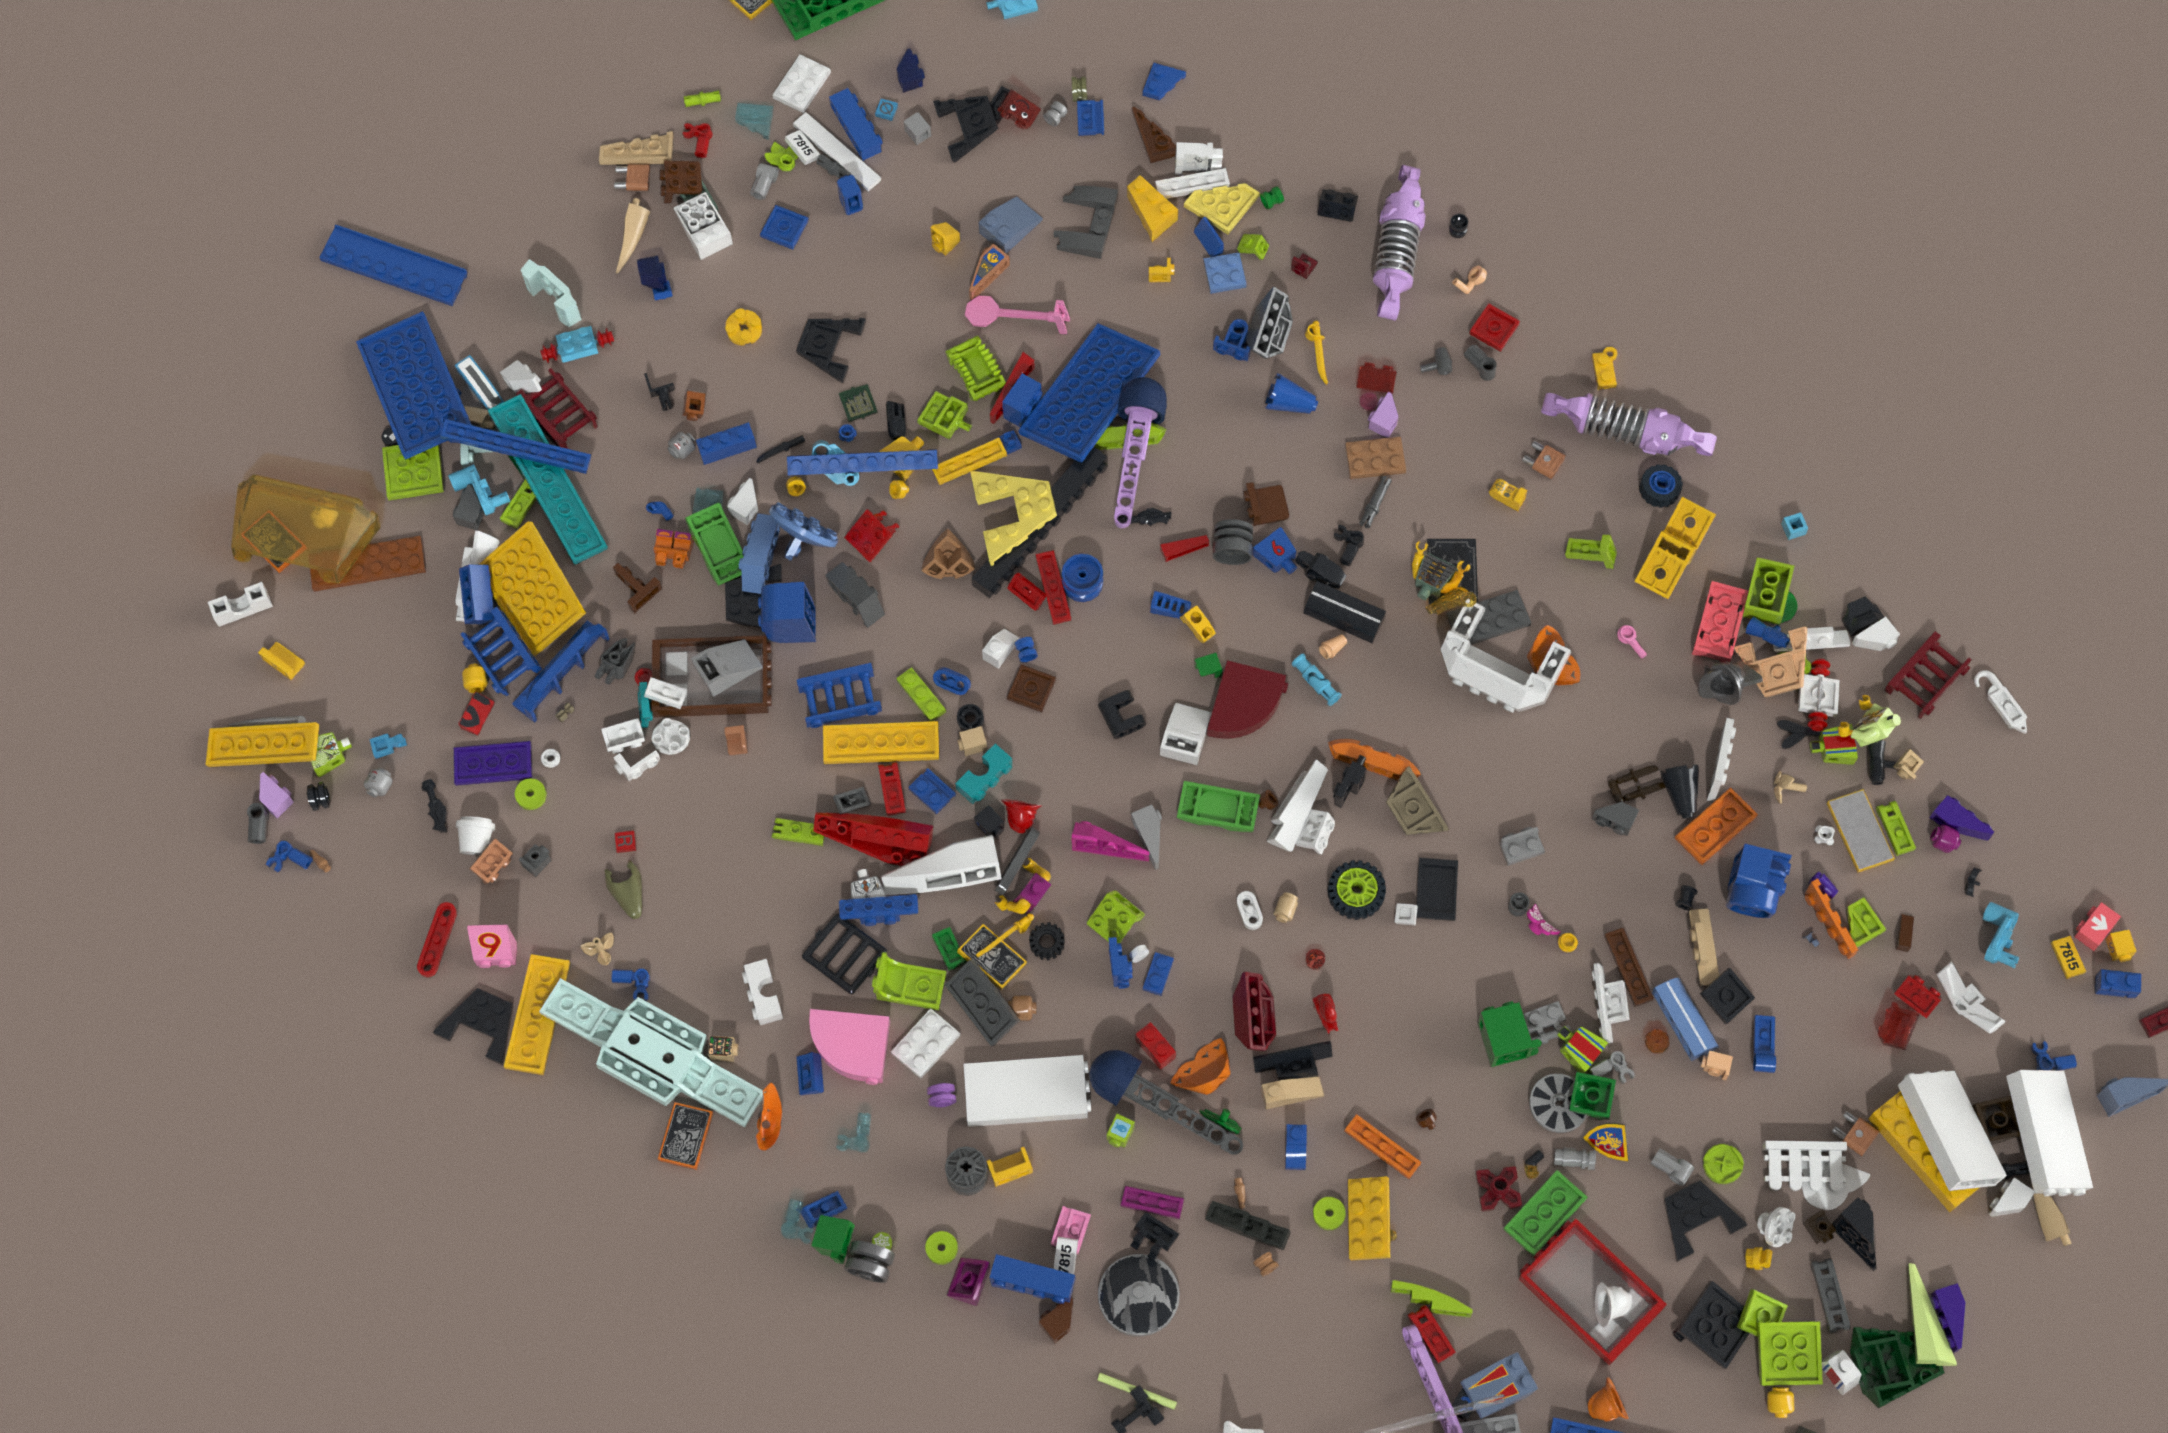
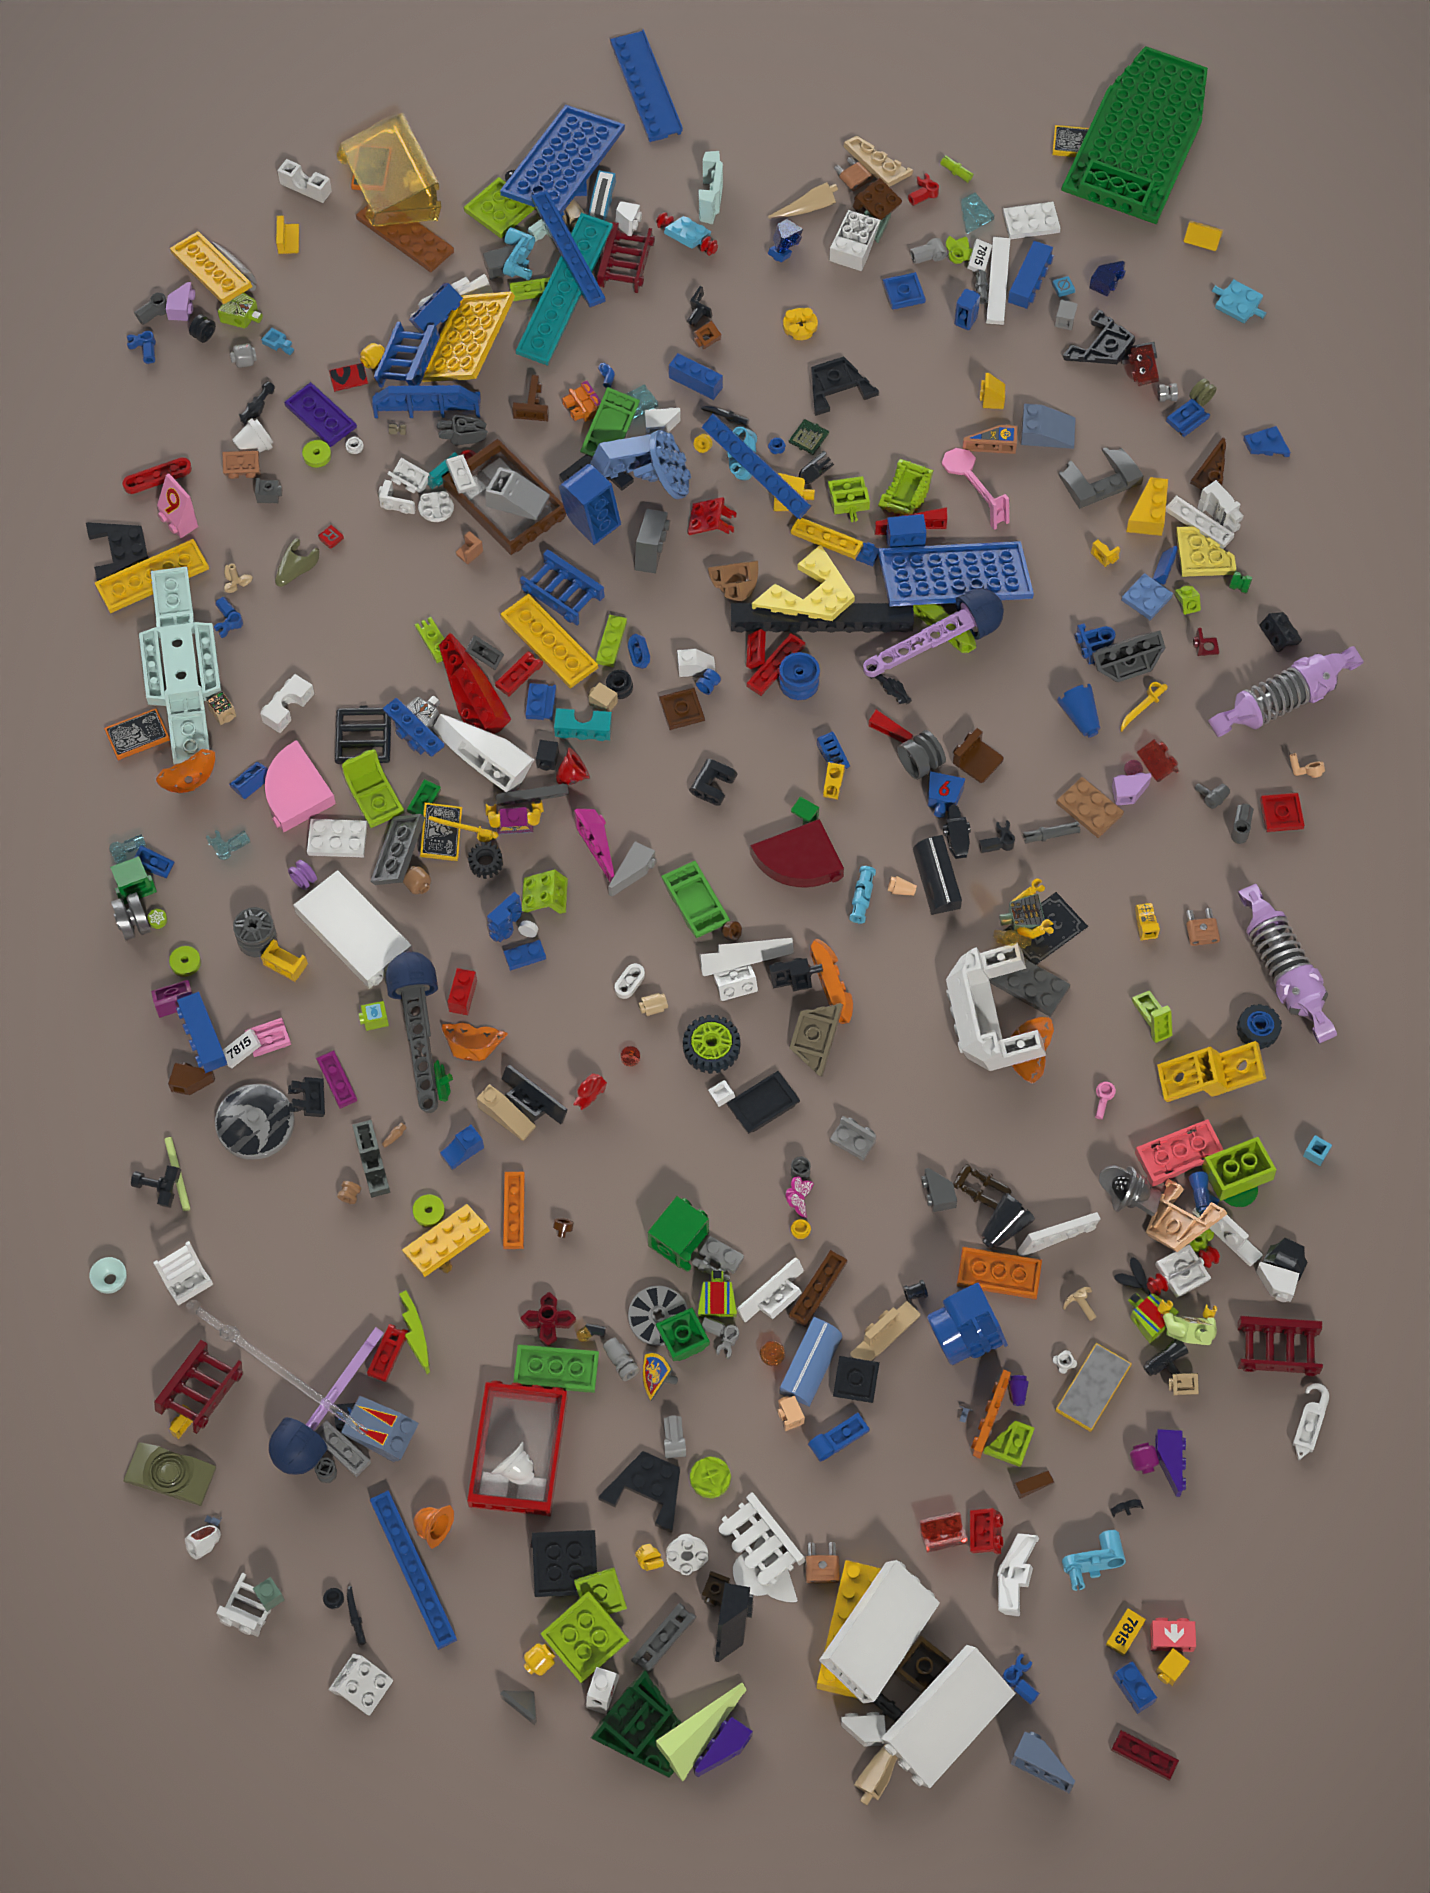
camera: 50 degrees right, 5 degrees down
(320, 861) = (156, 368): medium nougat piece -> none
(681, 445) = (667, 350): light grey head -> none
(898, 489) = (761, 509): yellow tile -> none
(1185, 734) = (733, 834): white slope -> none
(1254, 1012) = (547, 1041): dark red wedge -> none
(1458, 226) = (1345, 726): black wheel -> none
(1604, 368) = (1324, 916): yellow hinge -> none
(1896, 828) = (1119, 1413): lime plate -> none

